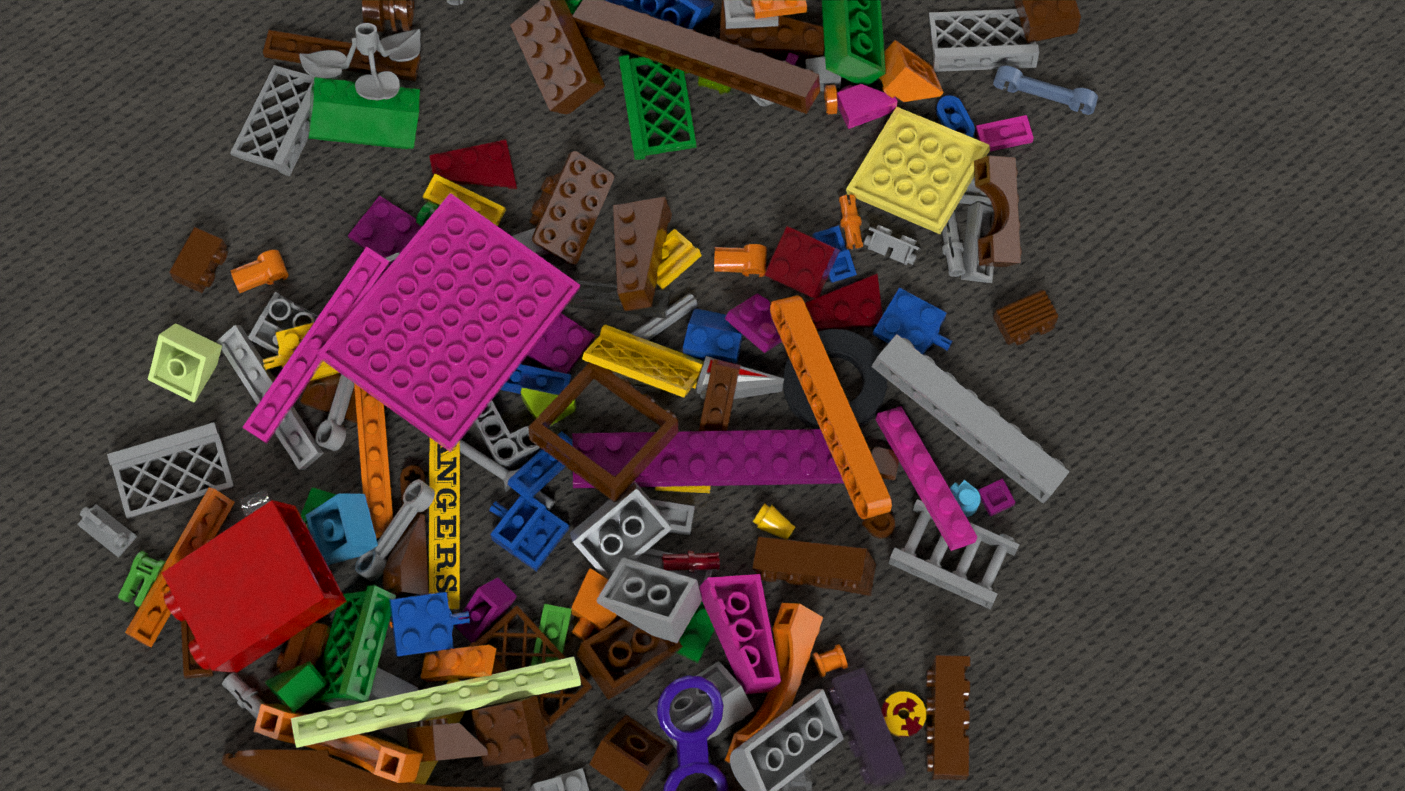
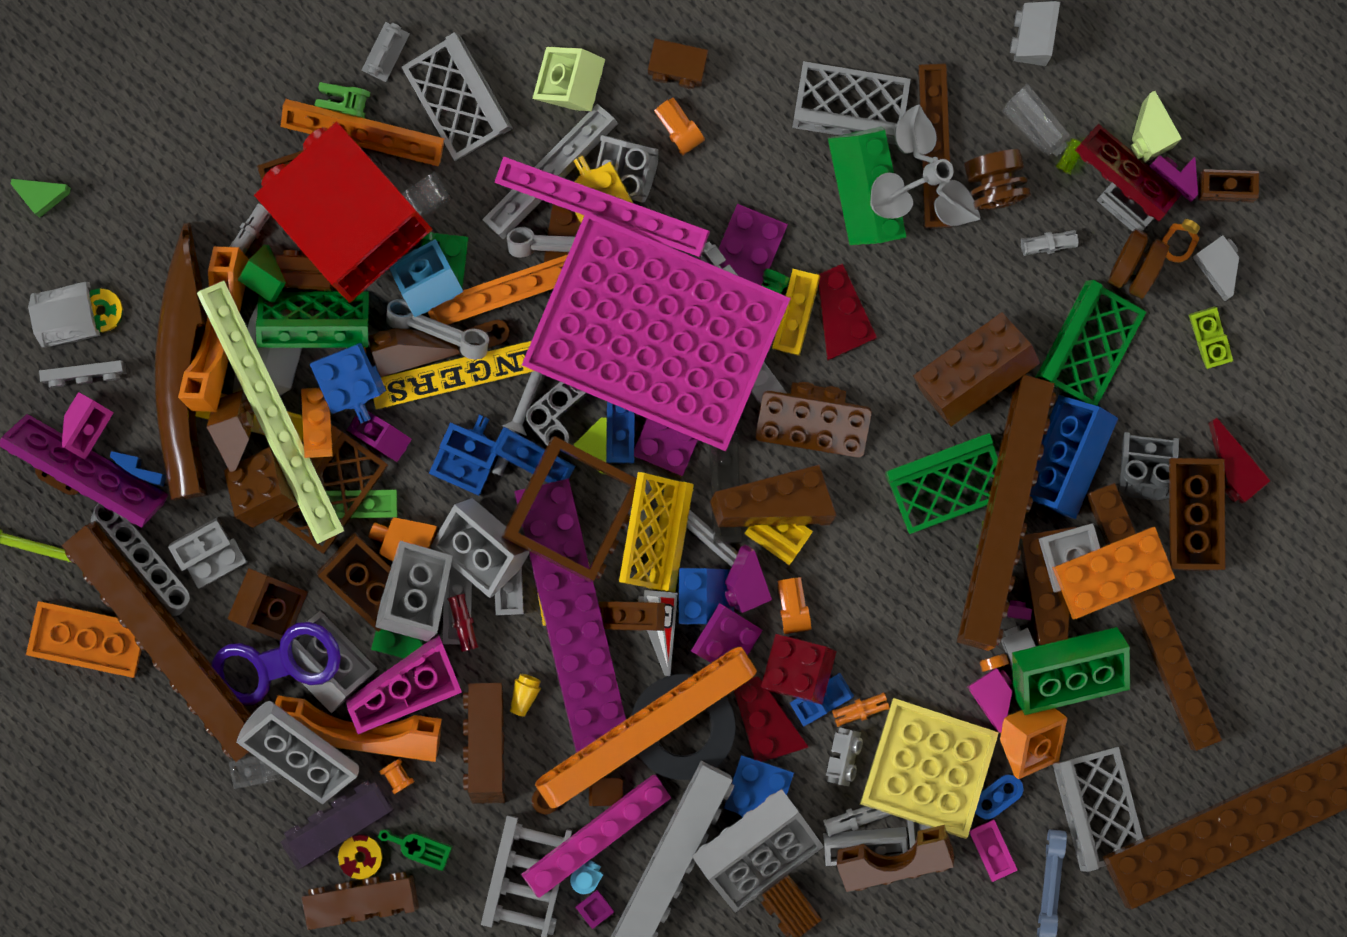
camera: 80 degrees right, 15 degrees up
(708, 292) = (746, 582): none -> magenta slope
(903, 645) = (422, 855): none -> green piece
(966, 330) = (757, 850): none -> light grey slope

